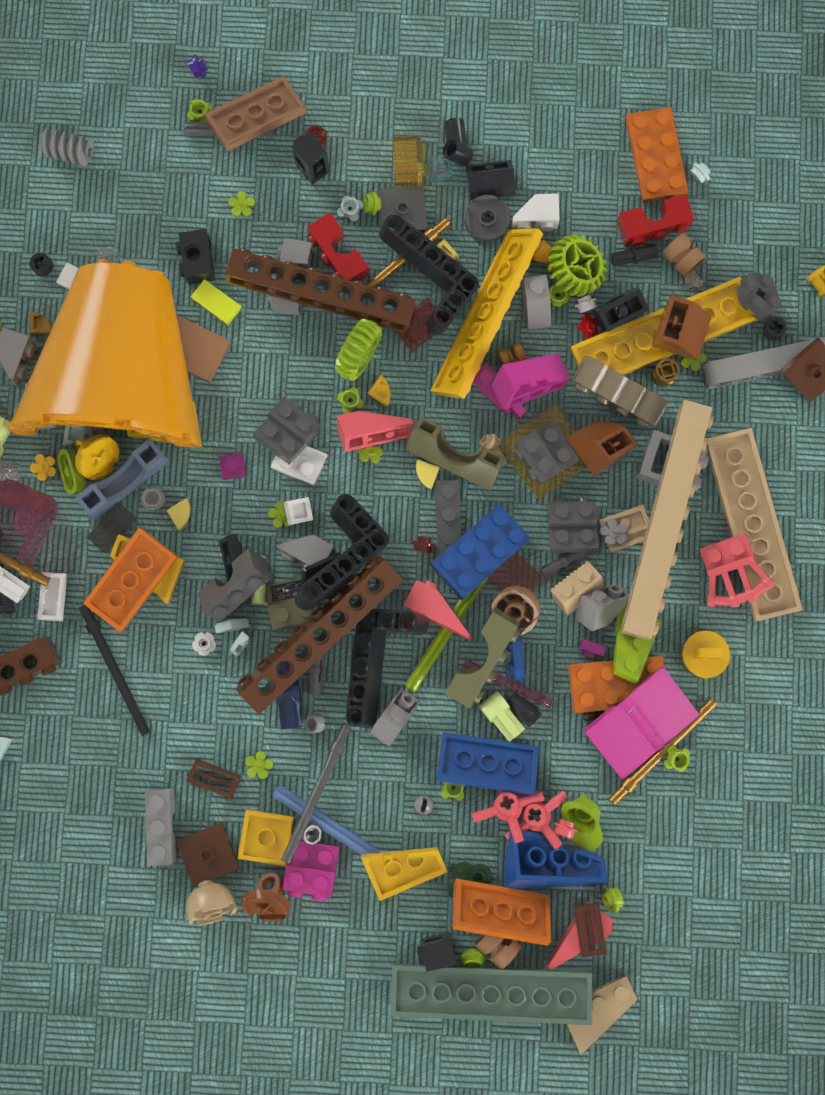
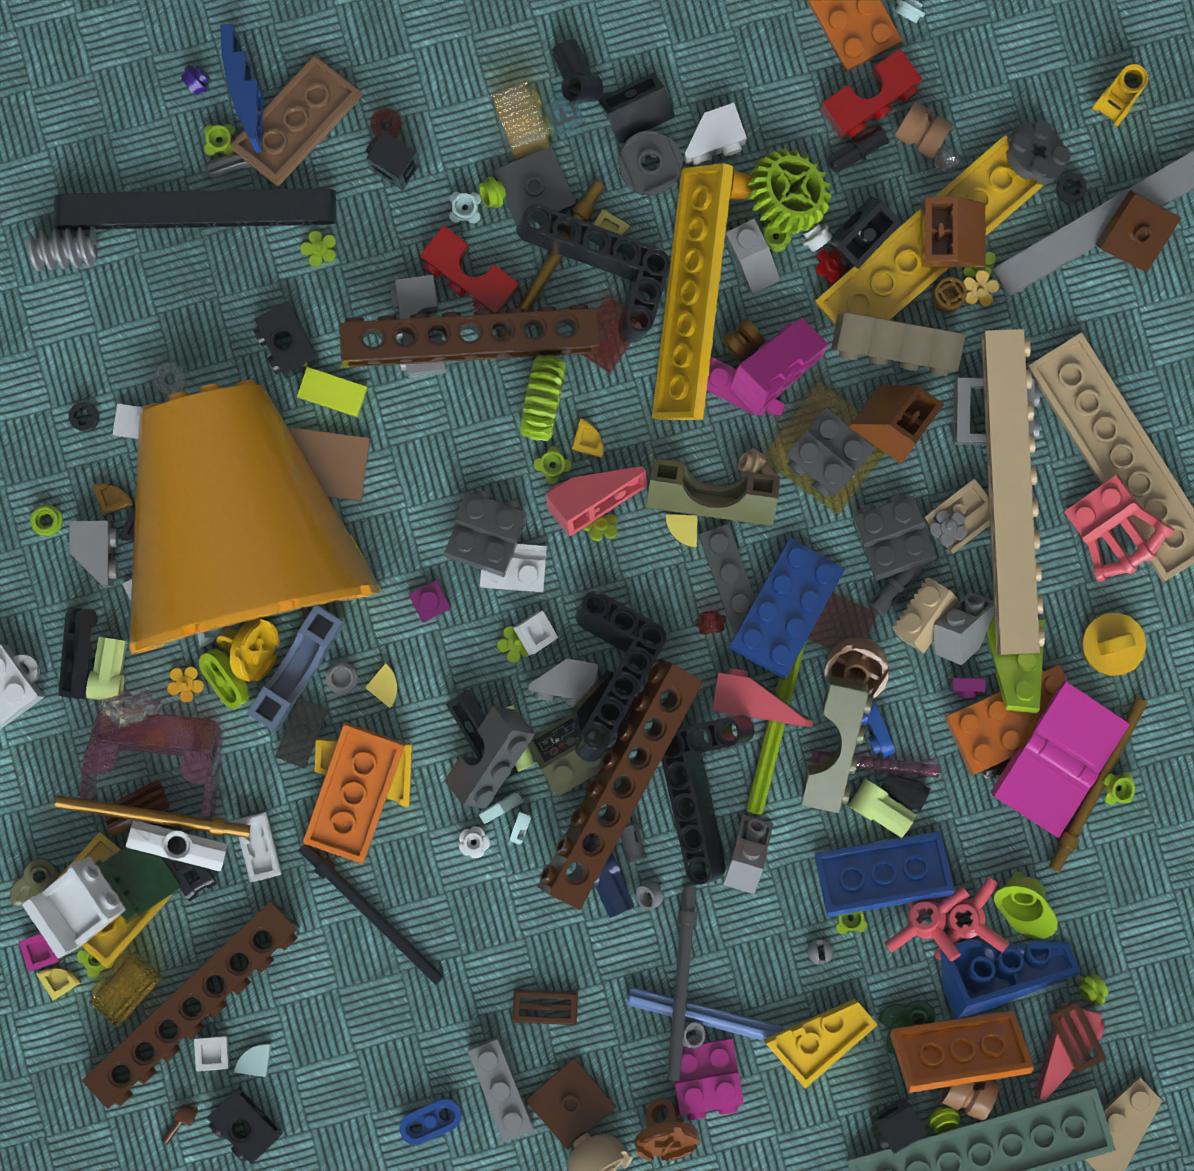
camera: 20 degrees left, 5 degrees up
(104, 833) = (432, 1123): none -> blue plate
(167, 150) = (195, 209): none -> black beam
(226, 81) = (244, 92): none -> blue slope
(258, 765) = (596, 972): lime plant -> none
(265, 837) = (636, 1058): yellow plate -> none
(565, 828) = (1006, 922): coral plate -> none
(689, 376) = (980, 288): none -> yellow plant

